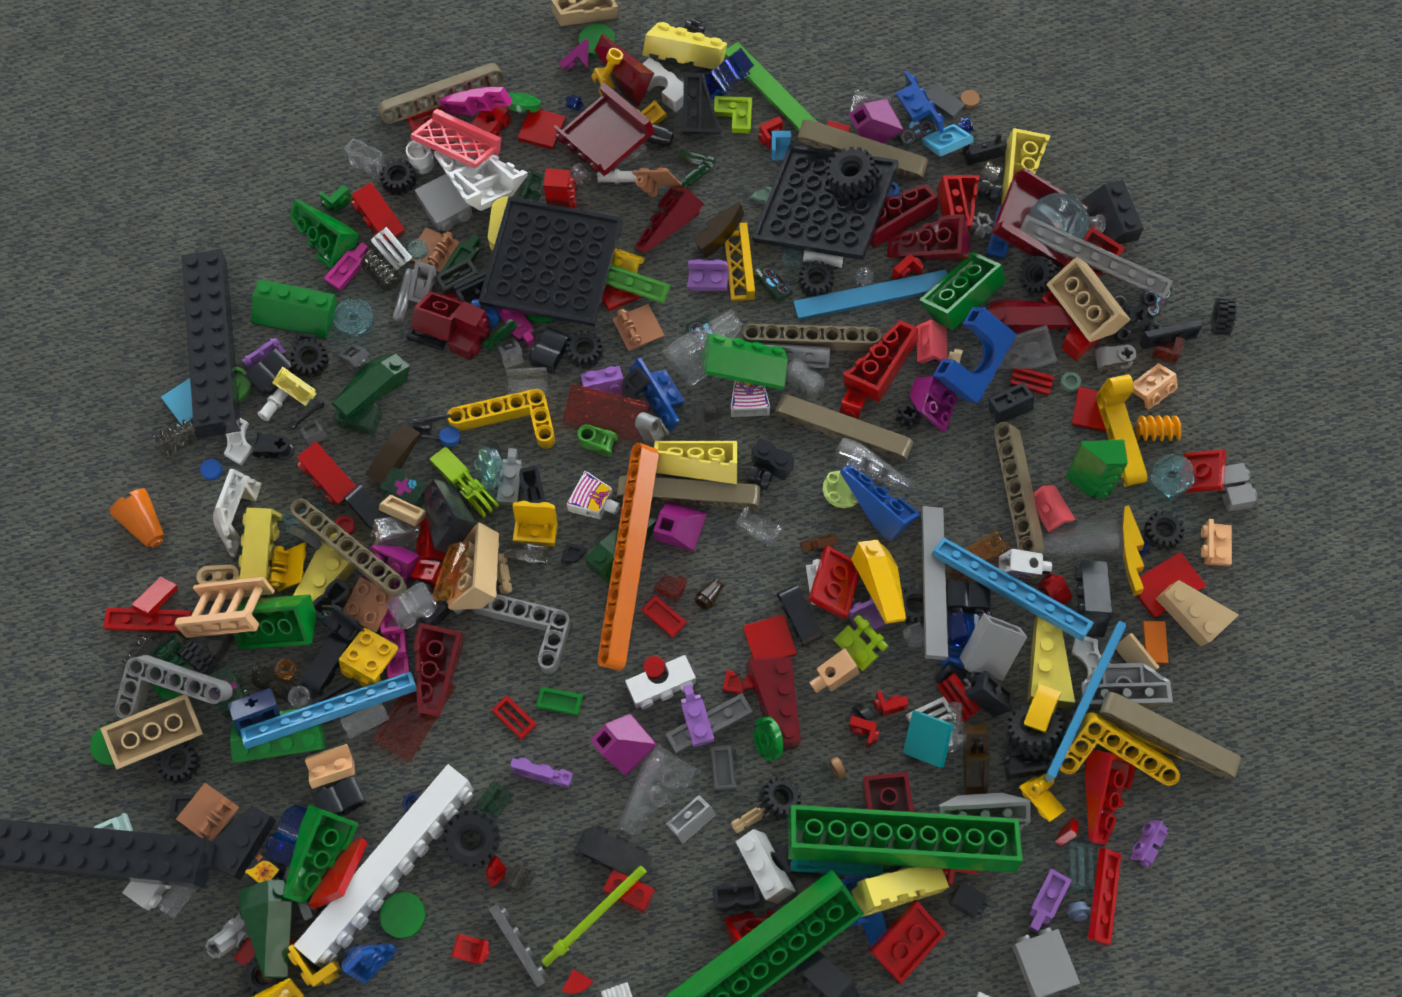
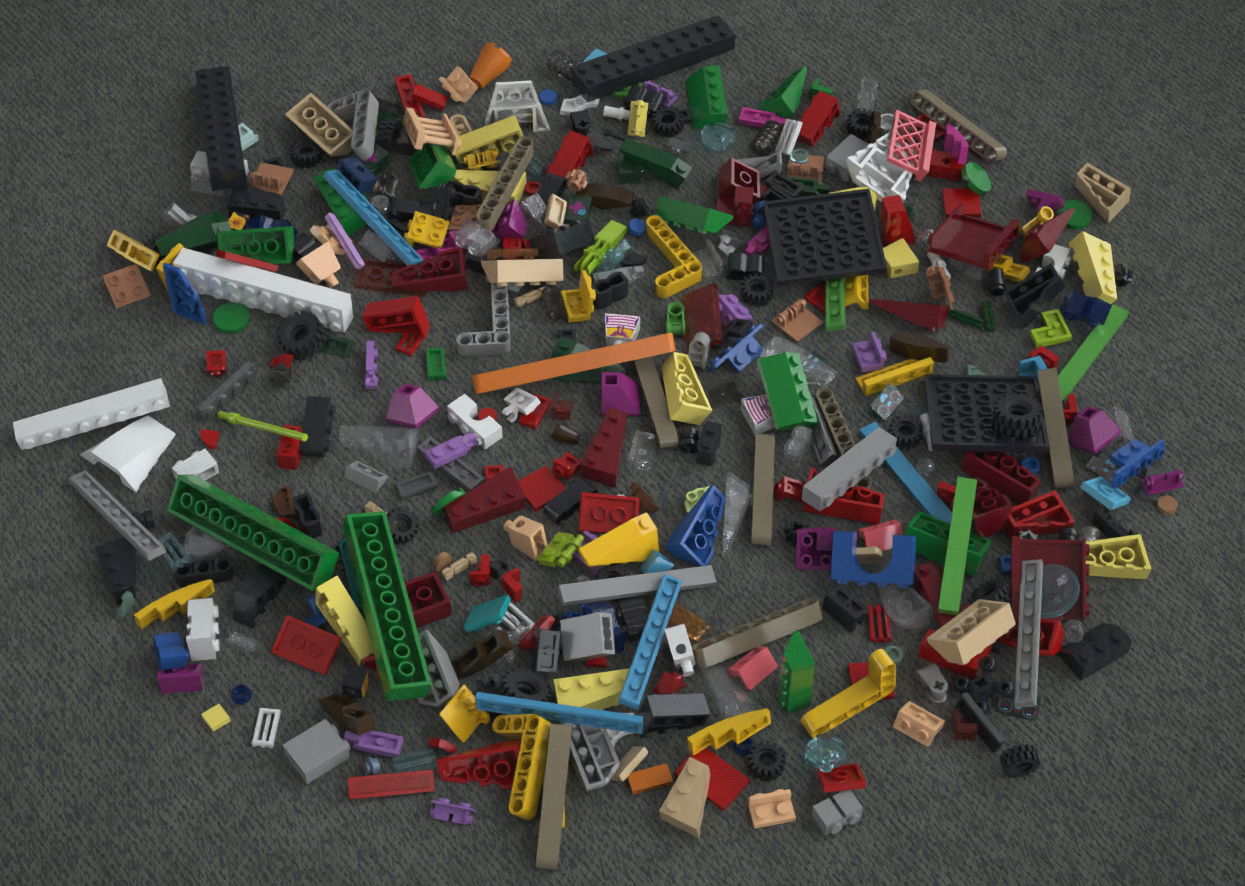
camera: 70 degrees right, 15 degrees down
(150, 559) = (459, 85): none -> light nougat bracket
(283, 663) = (401, 190): clear orange plate -> none
(345, 752) = (344, 241): none -> lavender axle
(367, 474) = (576, 180): none -> nougat gear
(373, 788) = (320, 265): none -> light nougat torso
(424, 164) = (874, 127): none -> dark brown tile
(467, 375) = (691, 215): none -> green slope
(482, 724) = (396, 316): none -> red wedge
(500, 334) = (743, 229): dark green axle -> none
(574, 102) = (998, 215): clear blue plate -> none
(597, 201) = (900, 259): none -> light yellow torso
(652, 627) = (519, 401): none -> white plate
(698, 919) = (283, 502): none -> reddish brown tile
(747, 559) = (605, 451): none -> dark red wedge
(752, 605) = (566, 466): none -> red bracket
(770, 879) = (327, 528): white arch -> none
(845, 752) = (459, 566): none -> tan axle
(864, 338) = (849, 469): none -> light grey brick
(908, 557) = (656, 563): none -> dark azure panel
(950, 90) = (1163, 482): none -> magenta hinge
(966, 125) = (1132, 506): clear blue plate -> none
(986, 278) = (957, 546): none -> bright green tile
(1009, 918) = (348, 713): none -> dark brown slope
(1042, 708) = (546, 682): yellow slope -> none
(1158, 427) = (871, 733): light orange piece -> none

